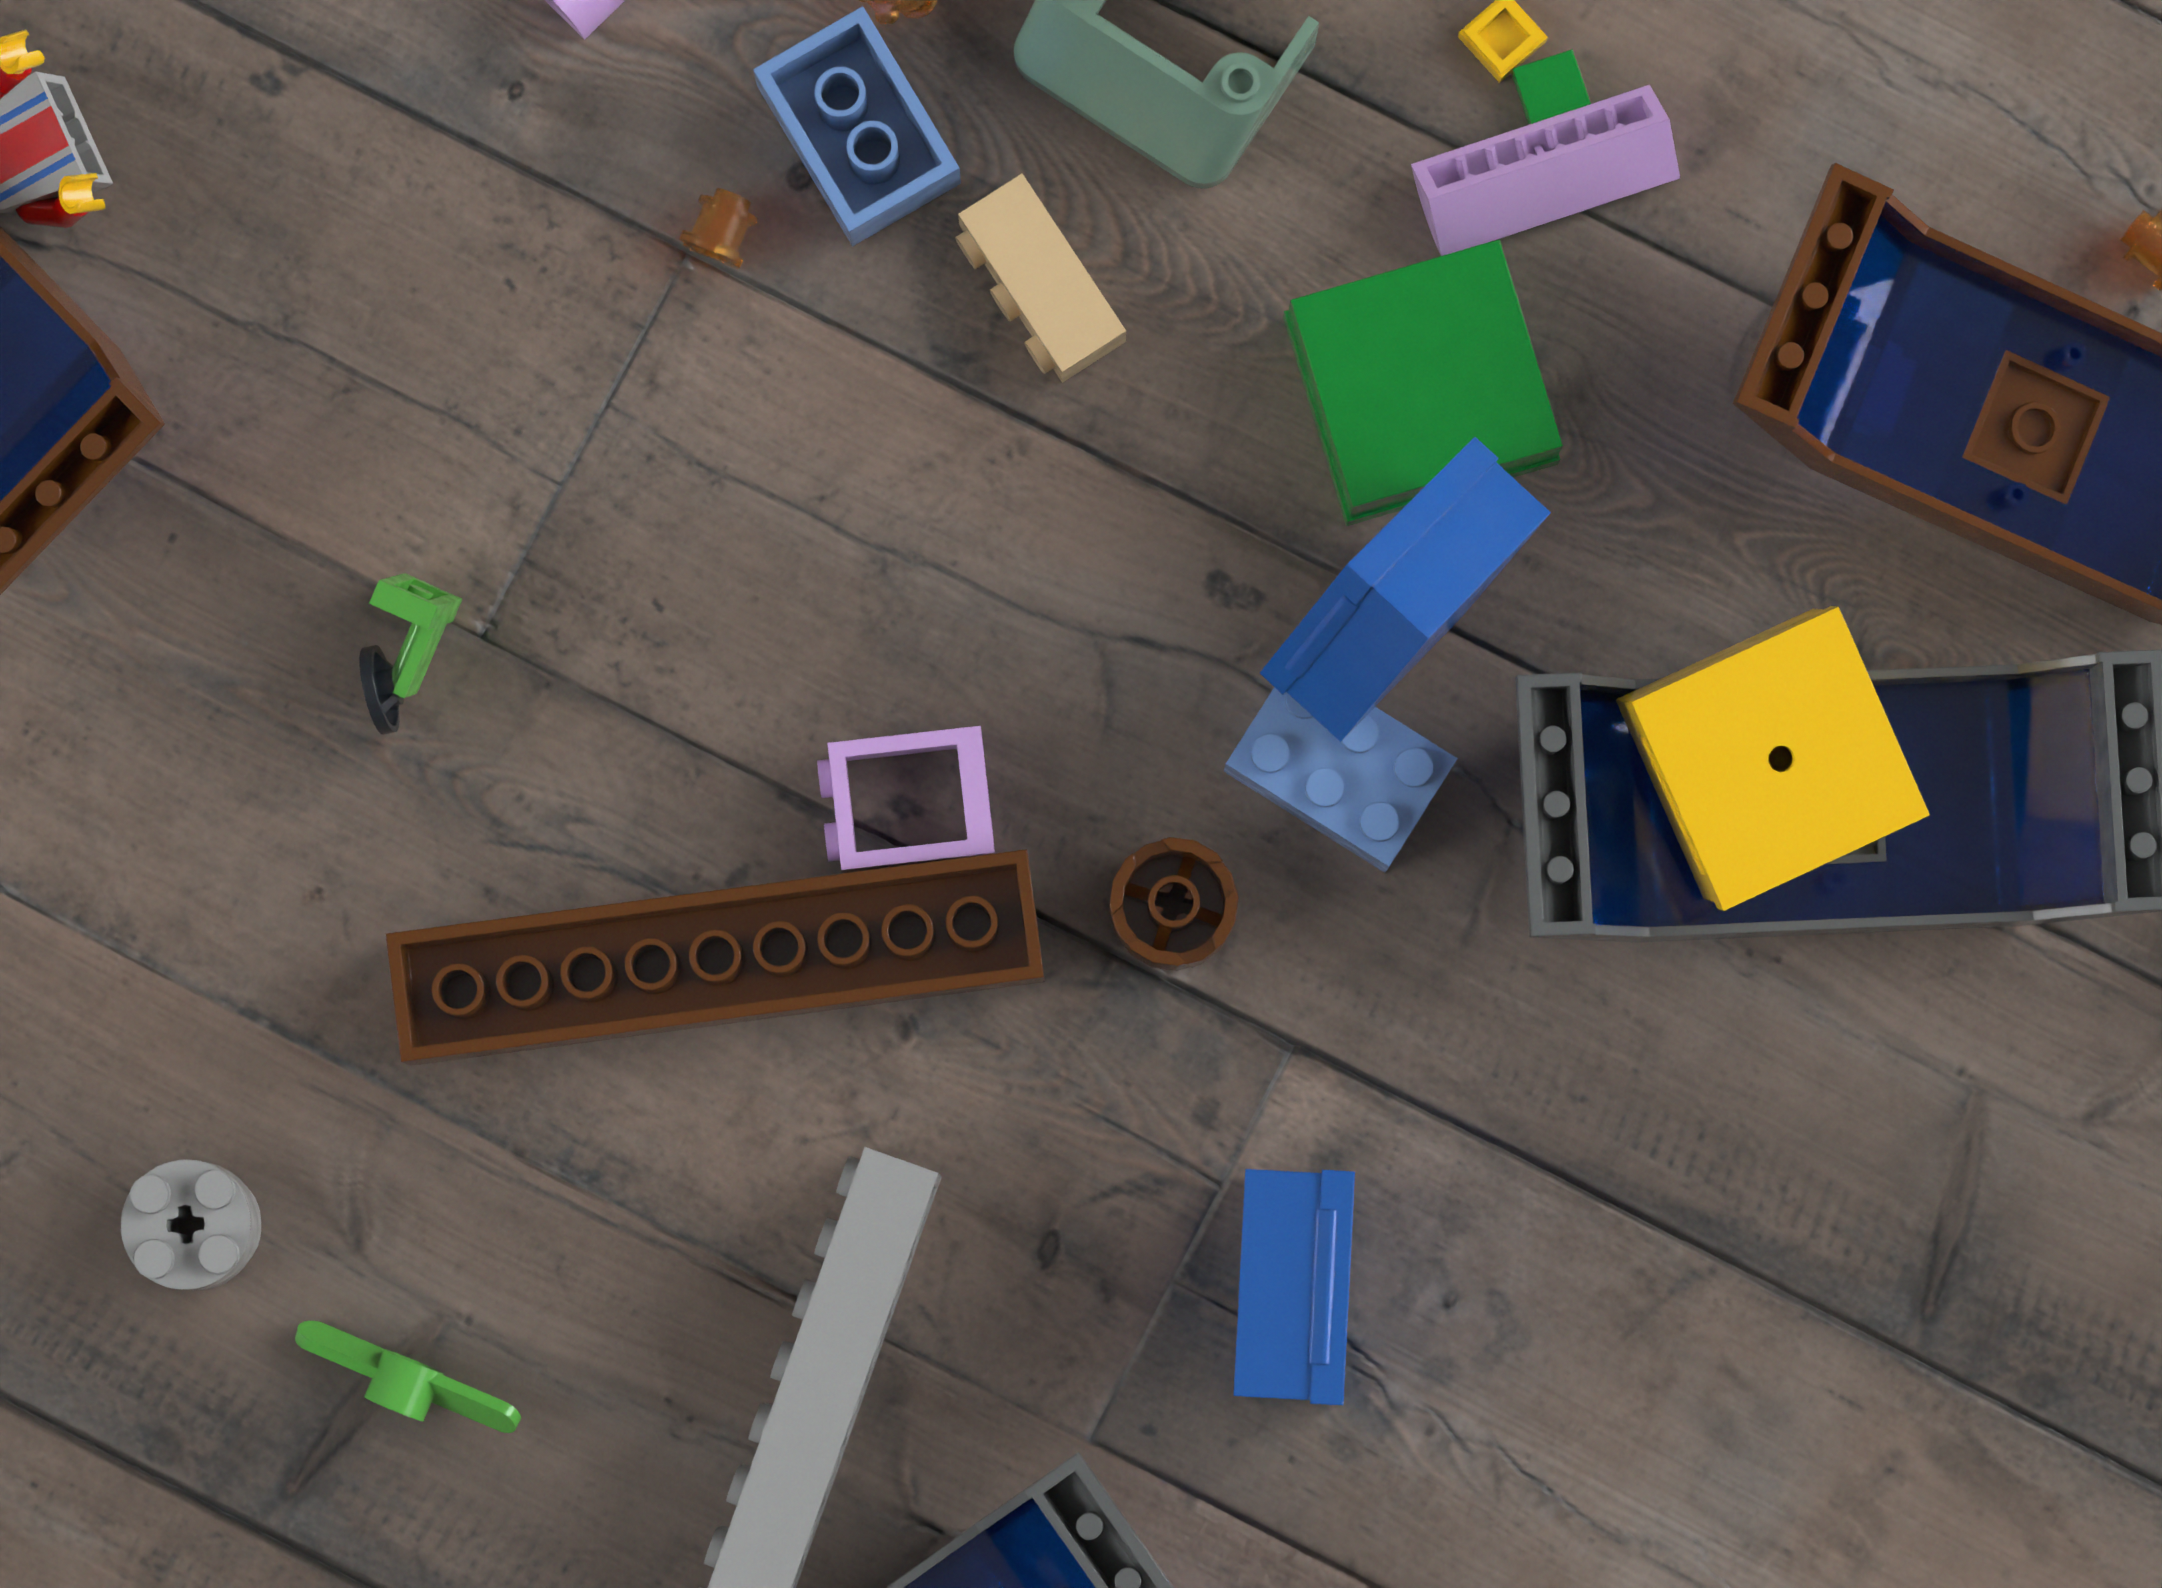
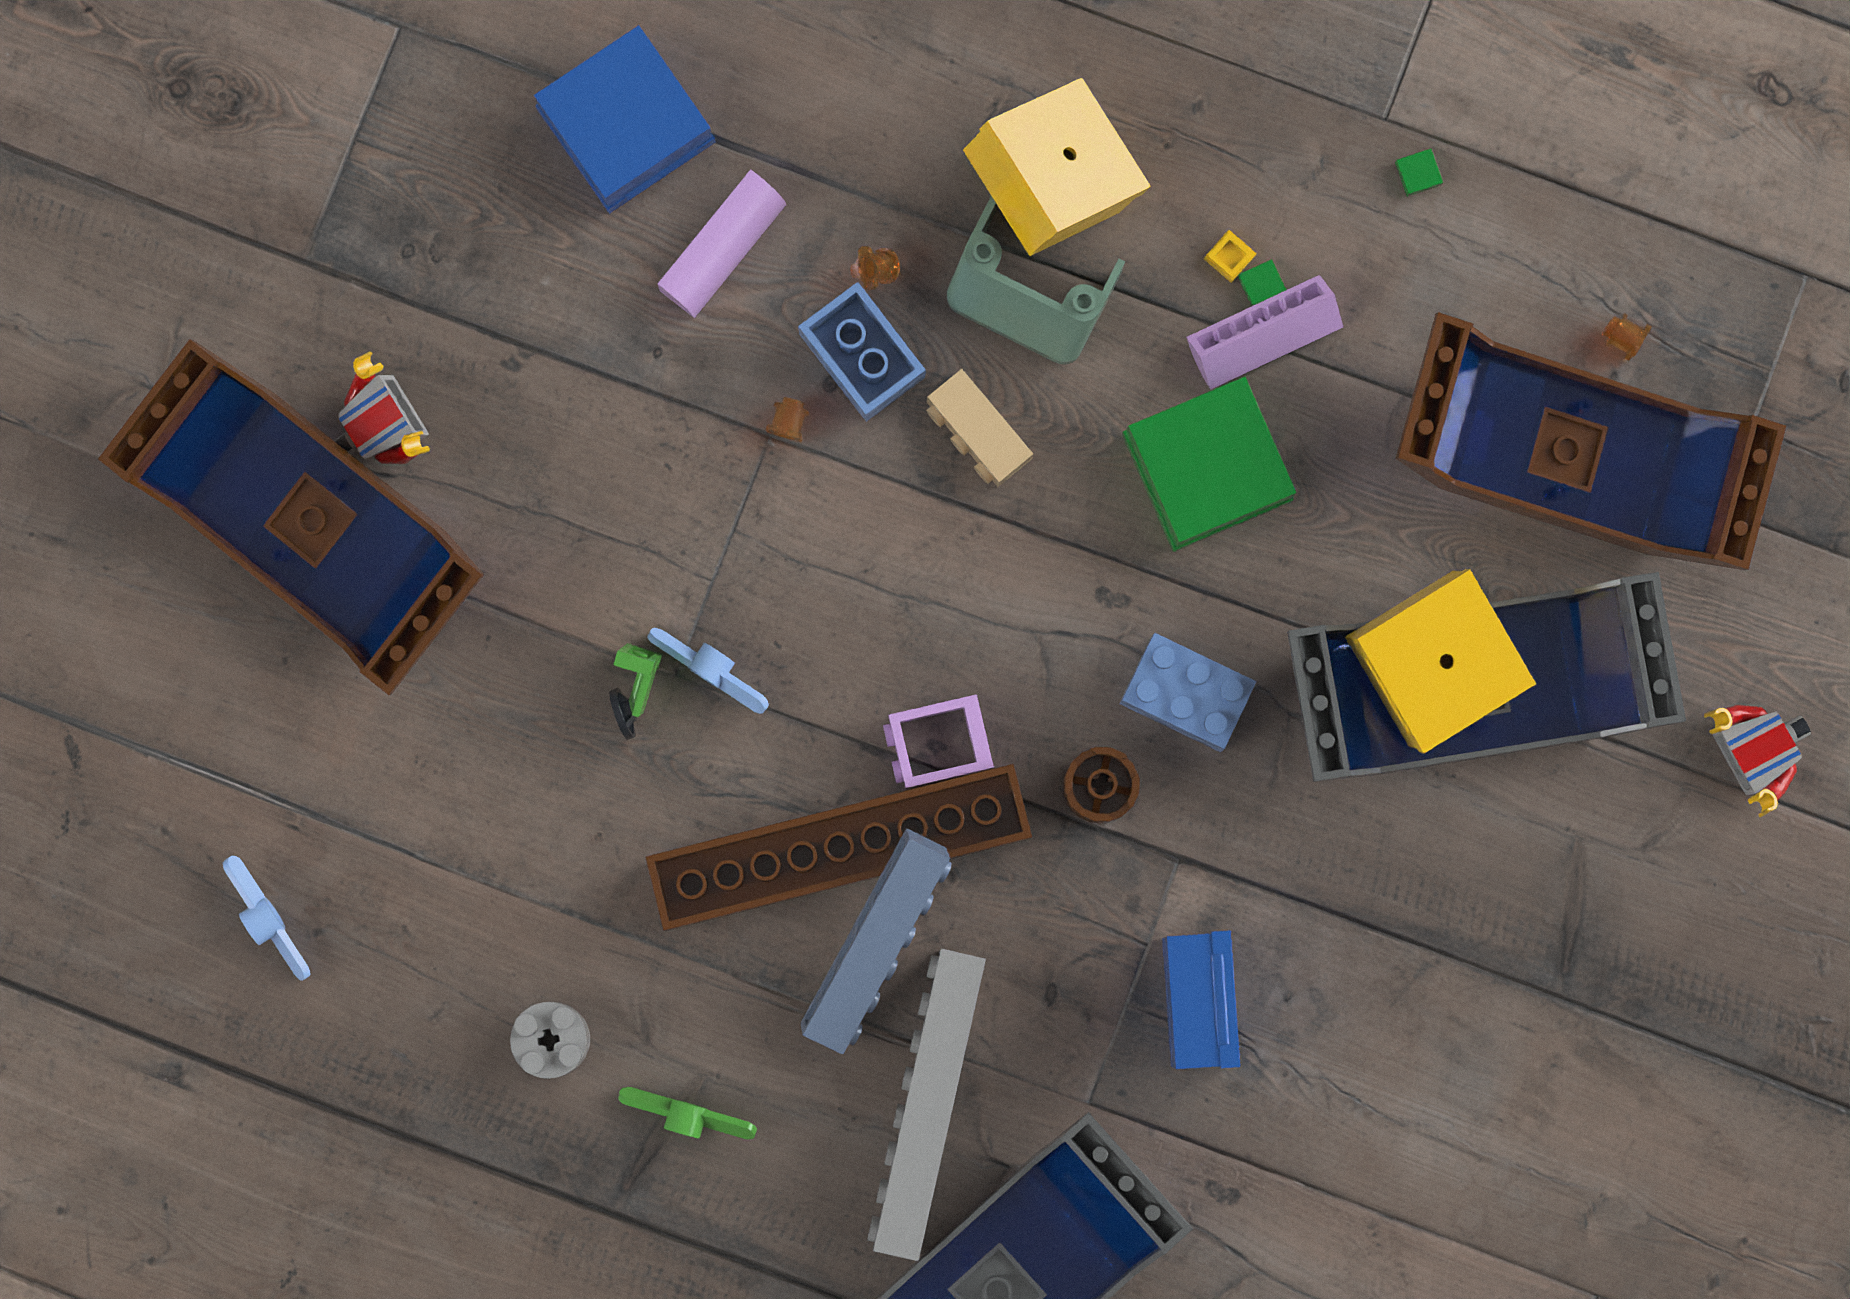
camera: 15 degrees left, 0 degrees up
(539, 628) = (711, 667): none -> light blue piece
(757, 1123) = (875, 941): none -> sand blue brick
(1405, 590) = (1217, 588): blue container -> none

